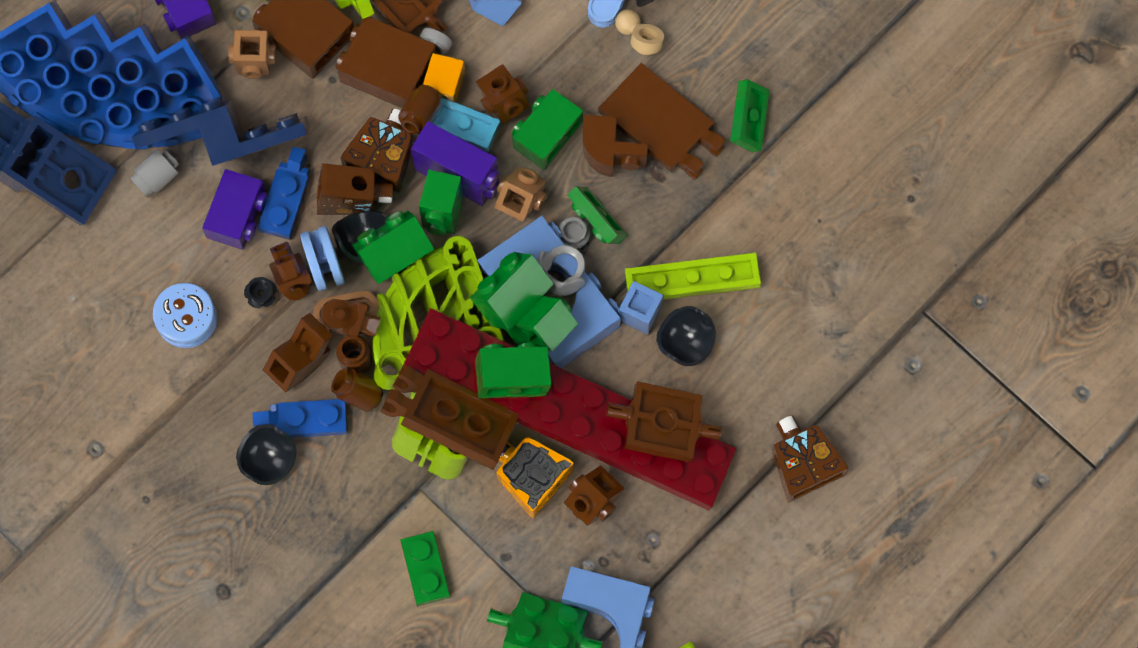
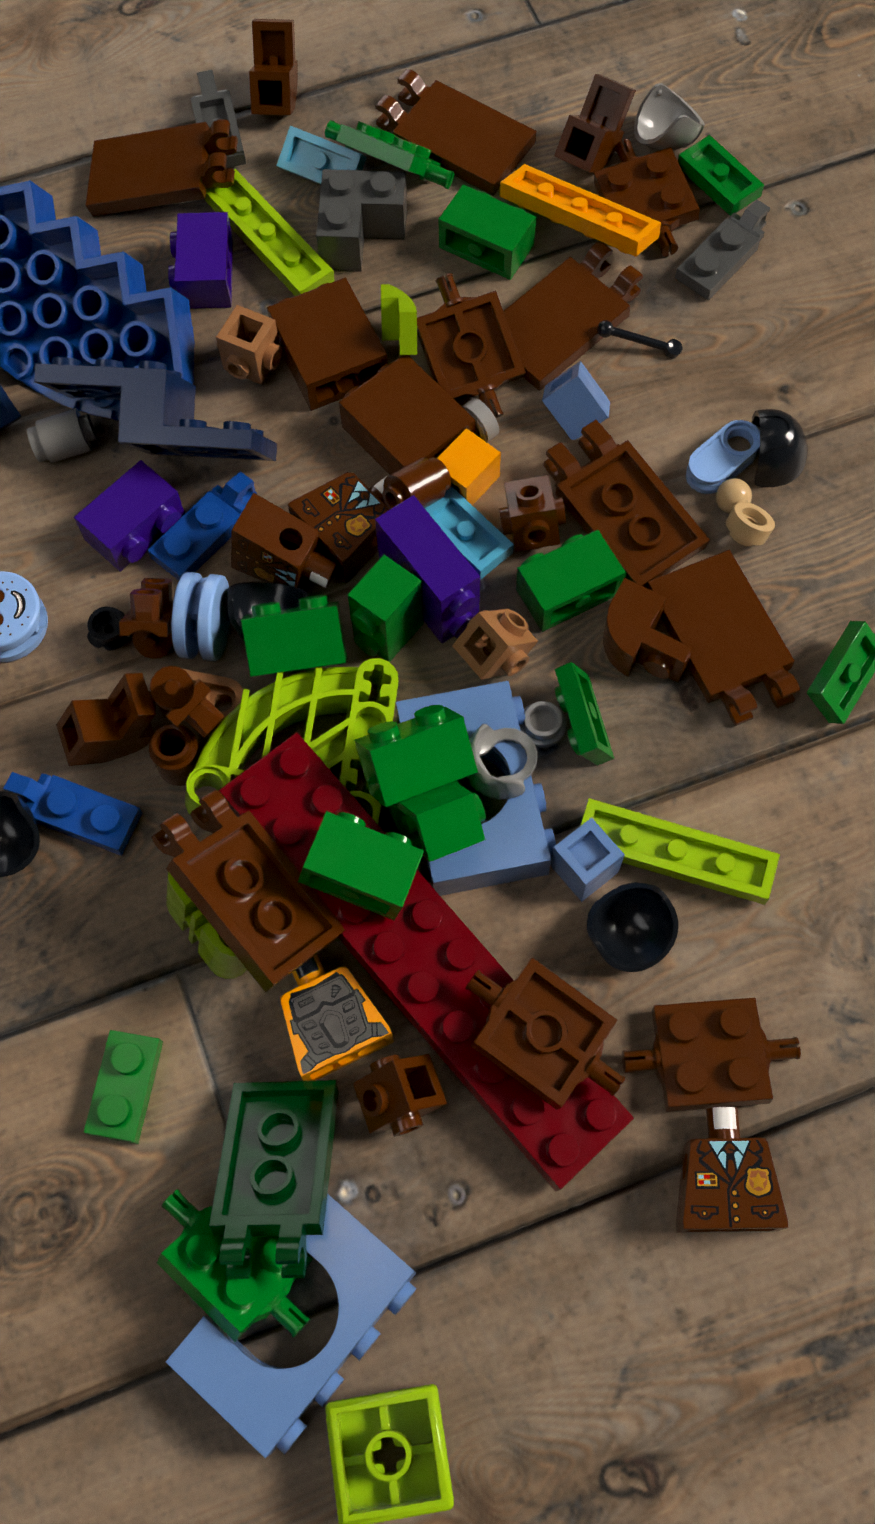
camera: 25 degrees right, 5 degrees down
(356, 389) = (154, 797): reddish brown brick -> none
(543, 568) = (274, 1171): none -> dark green tile
(559, 60) = (626, 504): none -> reddish brown tile
(765, 391) = (711, 1054): none -> reddish brown plate

